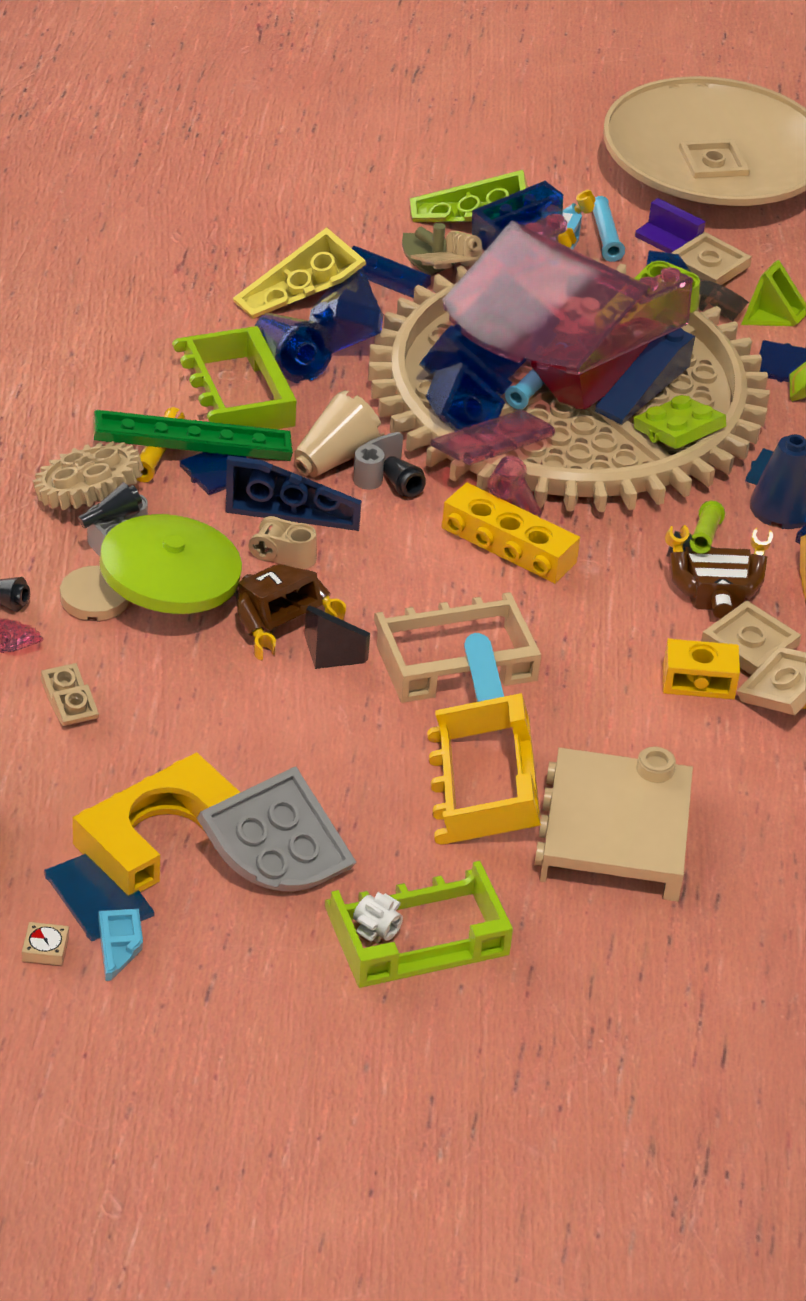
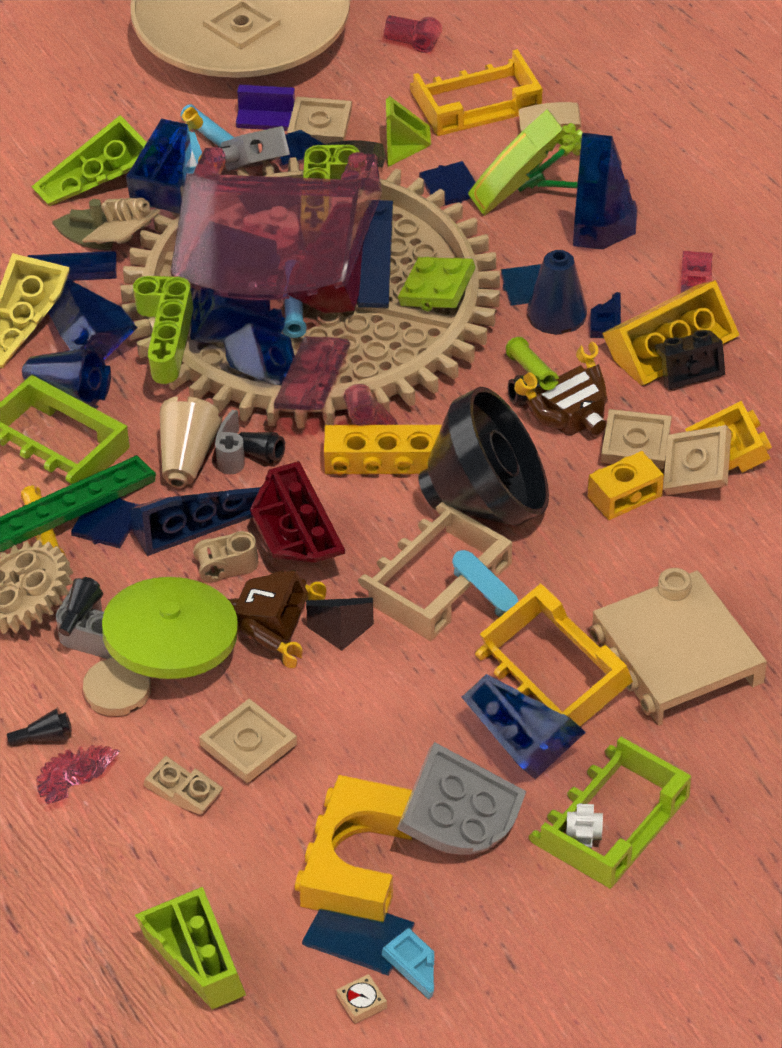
camera: 30 degrees left, 5 degrees up
(157, 690) = (248, 740): none -> tan plate
(366, 538) = (294, 518): none -> dark red wedge
(397, 804) = (524, 727): none -> clear blue wedge
(414, 330) = (172, 305): none -> lime beam
(577, 573) = (485, 462): none -> black cone
(615, 246) = (244, 149): none -> light grey torso

